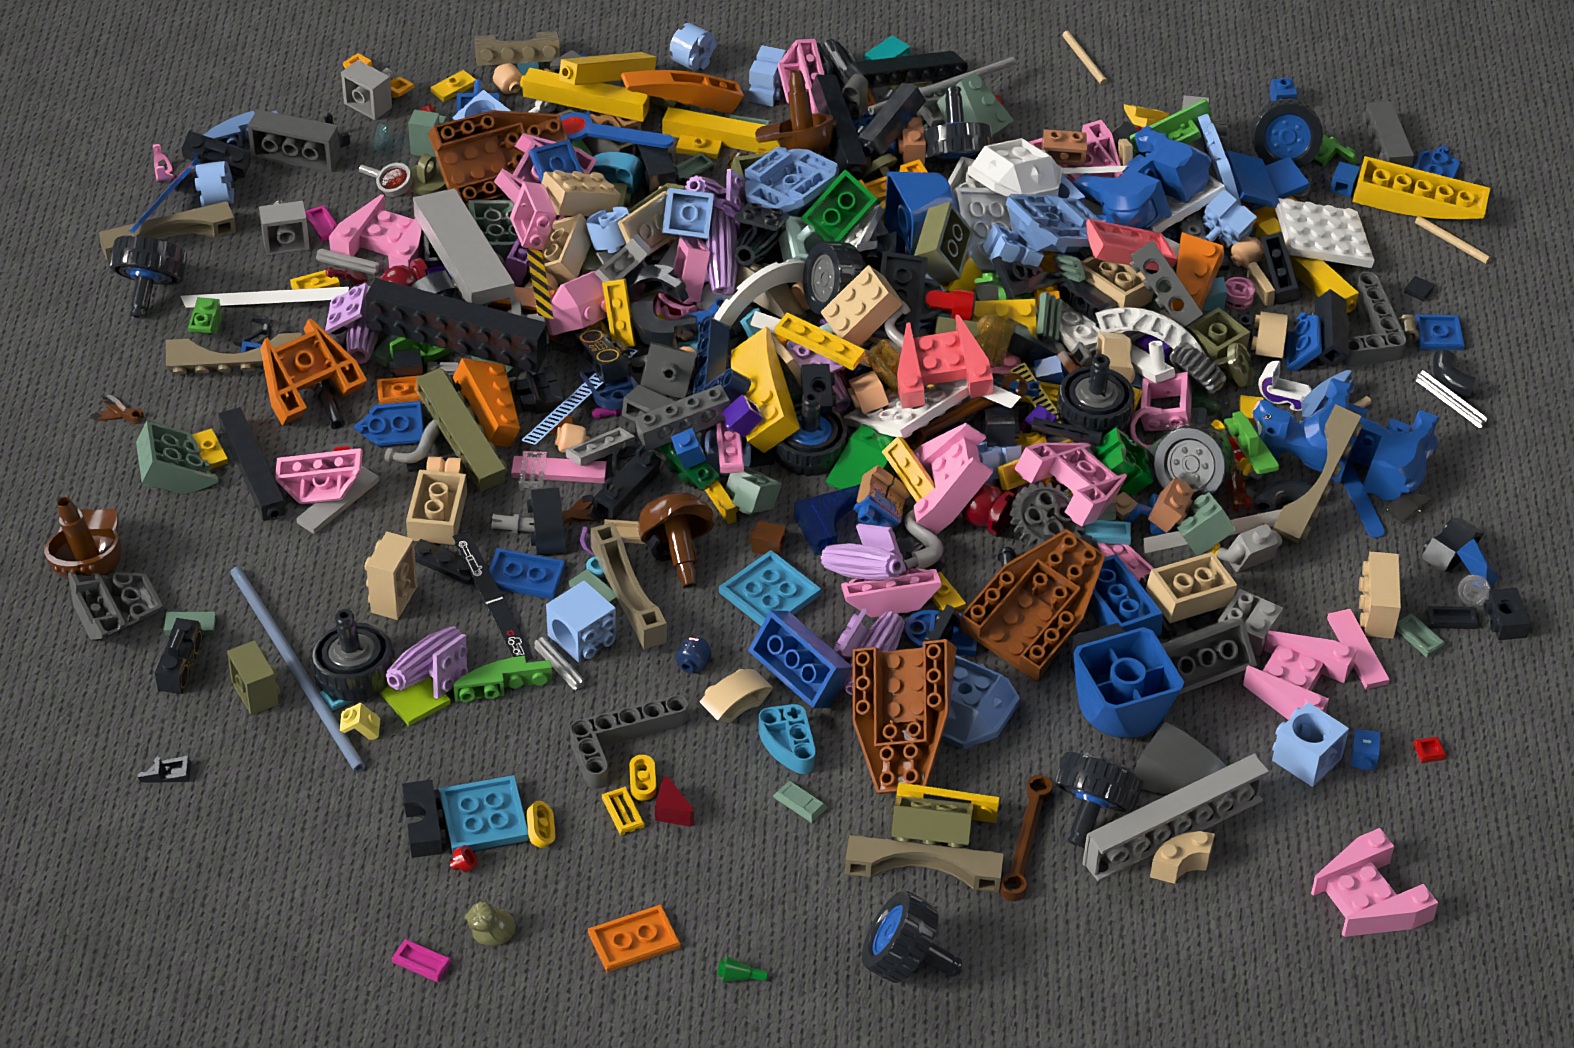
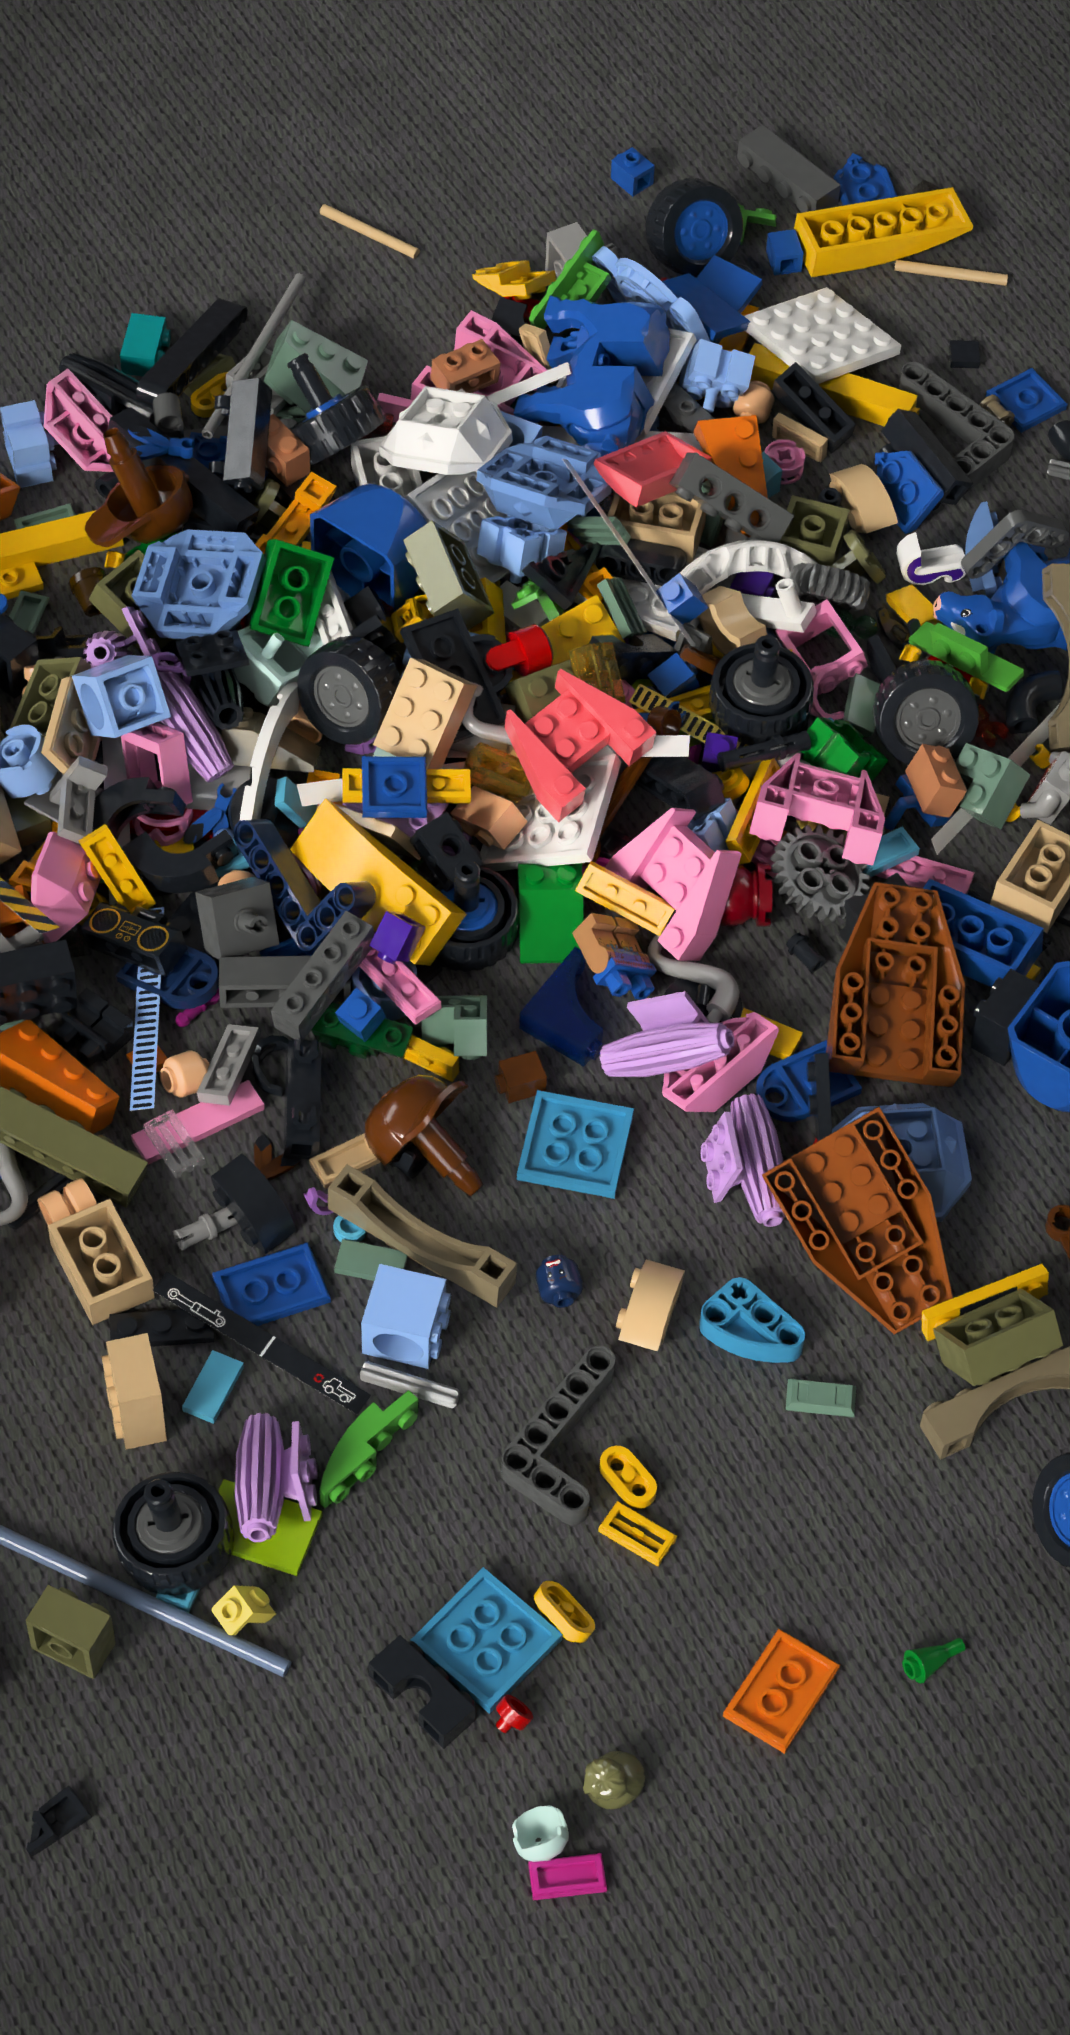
camera: 35 degrees left, 10 degrees up
(422, 927) = (542, 1823): none -> light aqua hair
(446, 605) = (213, 1386): none -> medium azure tile
(672, 805) = (691, 1492): dark red slope -> none
(800, 659) = (693, 1217): blue brick -> none
(808, 336) = (394, 787): none -> blue tile
(833, 100) = (159, 445): none -> blue piece
(1068, 281) = (624, 545): none -> white sticker
(1086, 325) = (682, 599): none -> blue brick
(1366, 399) = (1014, 527): none -> dark grey beam

